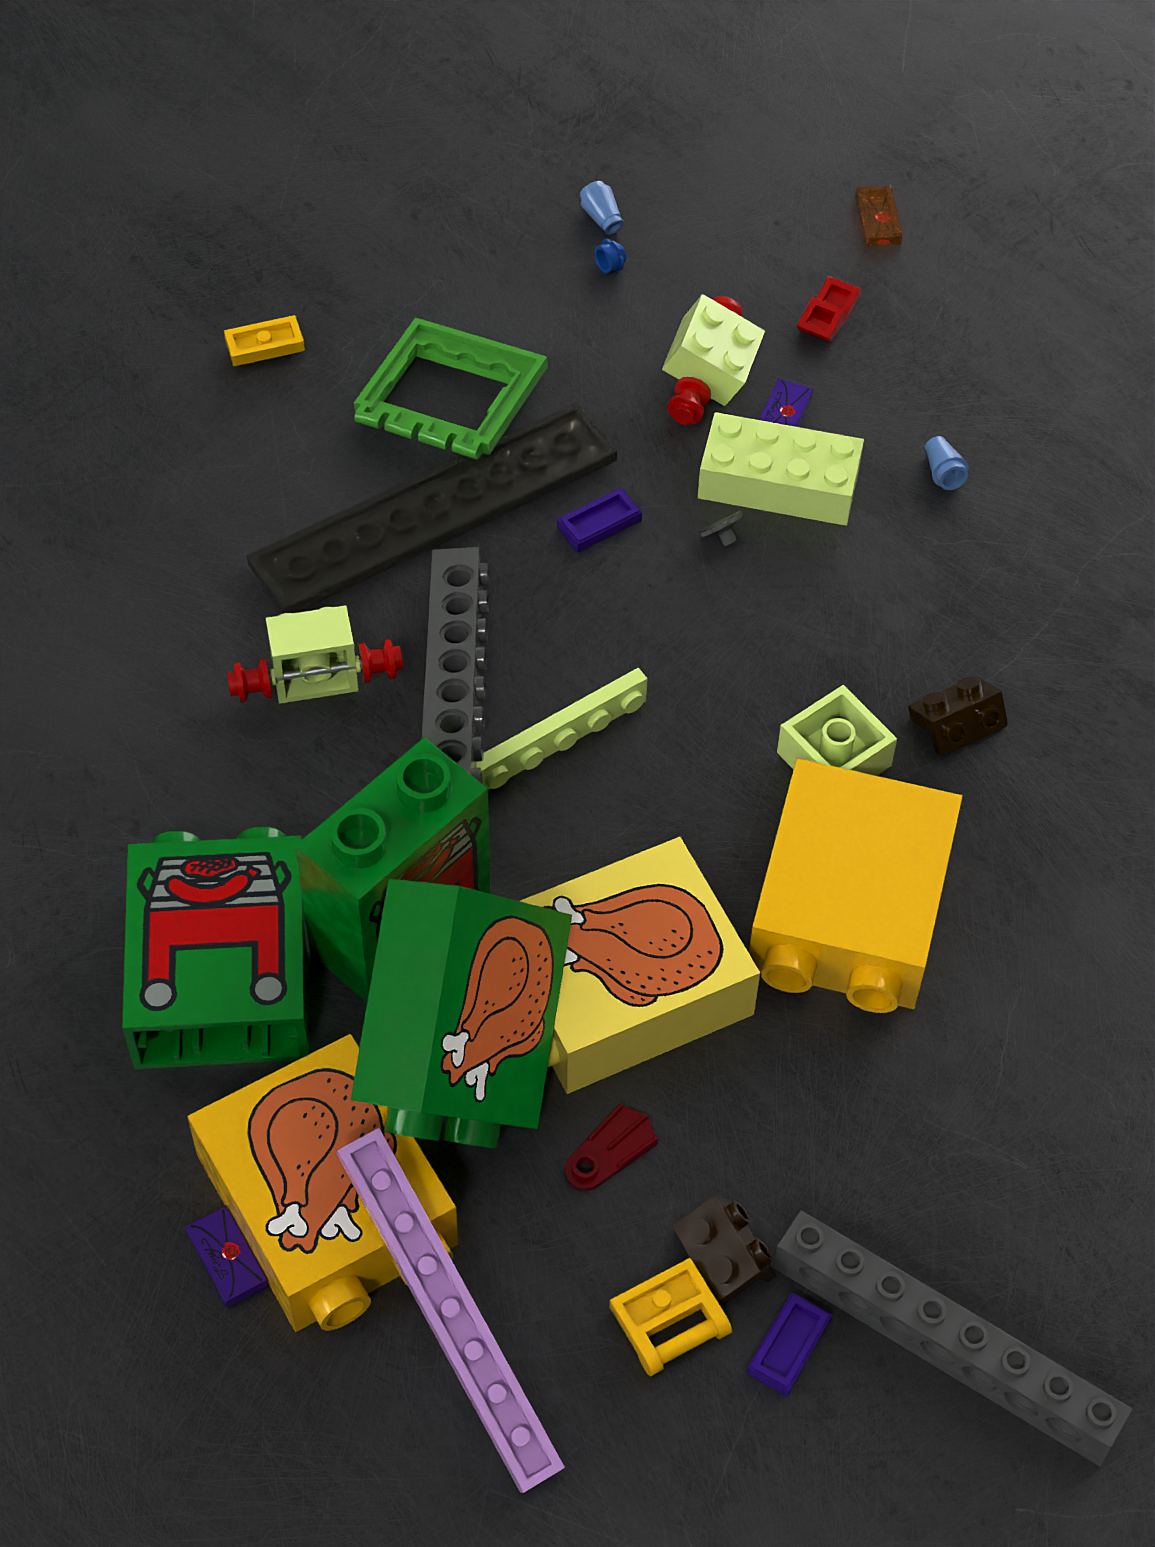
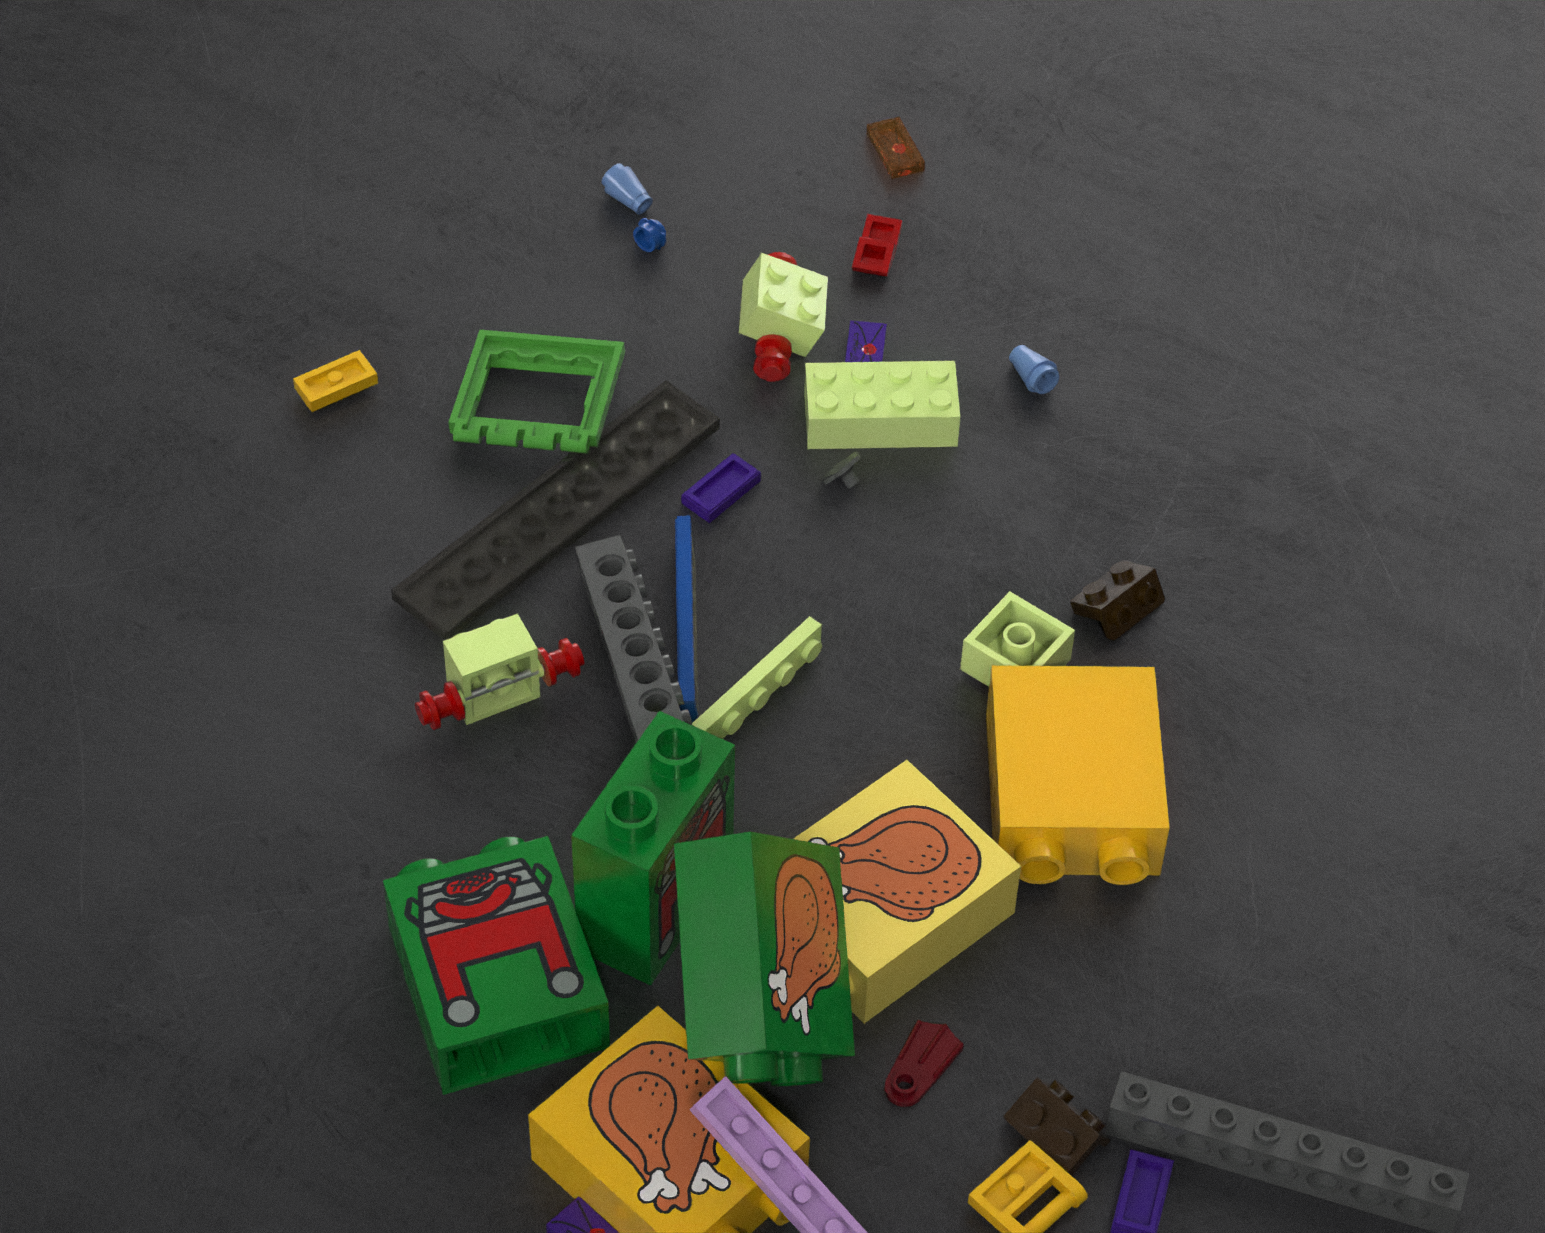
camera: 15 degrees left, 5 degrees down
(520, 644) = (686, 615): none -> blue tile

